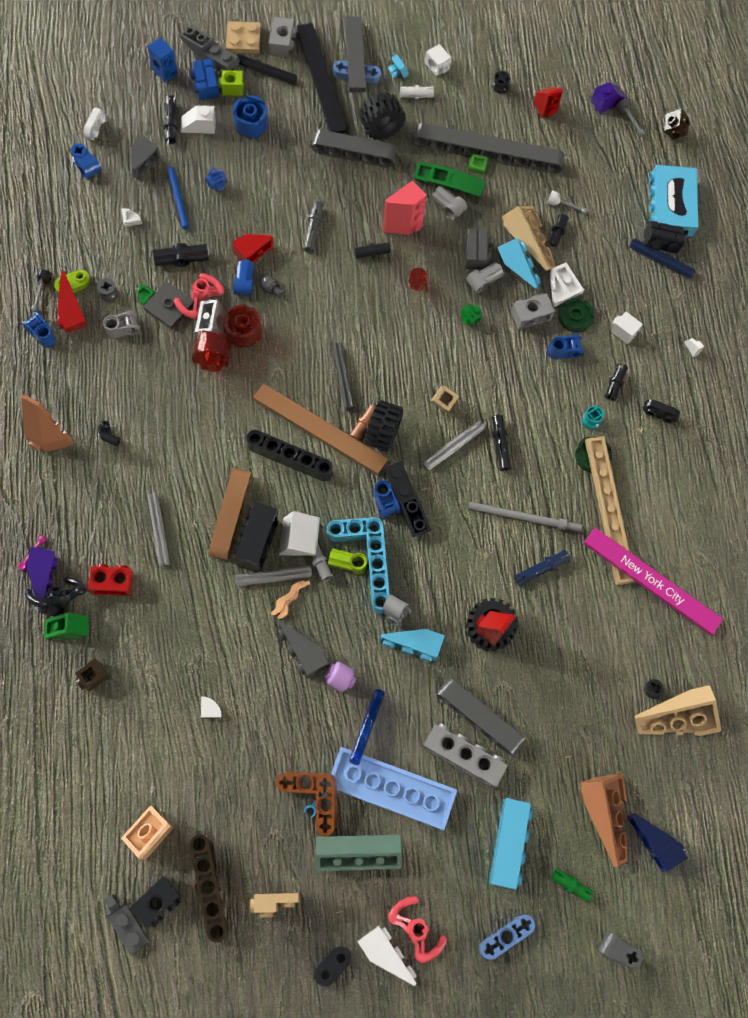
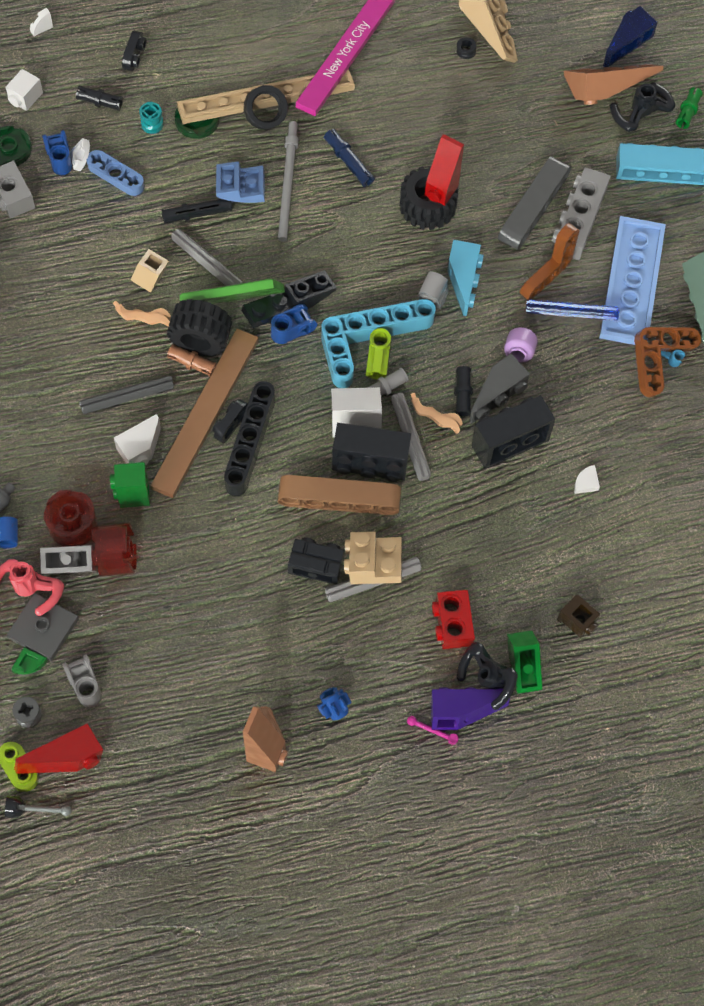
camera: 95 degrees left, 5 degrees down
(38, 328) = (100, 793): blue piece -> none
(64, 484) = (334, 703): none -> blue gear
(106, 434) = (251, 670): black arm -> none
(170, 528) = (373, 558): none -> tan plate
(179, 488) = (316, 560): none -> black brick
(257, 650) = (512, 431): none -> black brick
(259, 366) = (130, 485): none -> green brick
(297, 378) = (139, 441): none -> white slope
(302, 439) = (224, 428): none -> black plate
(306, 623) = (463, 391): none -> black pin
(406, 399) = (154, 317): none -> light nougat hair
(409, 452) = (236, 292): none -> bright green tile
(418, 723) = (561, 258): none -> dark orange beam
(471, 314) = (24, 255): green gear -> none
(522, 477) = (239, 183): none -> medium blue slope
(545, 379) = (118, 181): none -> medium blue beam
(561, 362) = (80, 154): none -> white tile
(580, 500) = (282, 107): none -> black tyre
(586, 841) = (644, 104): none -> black piece

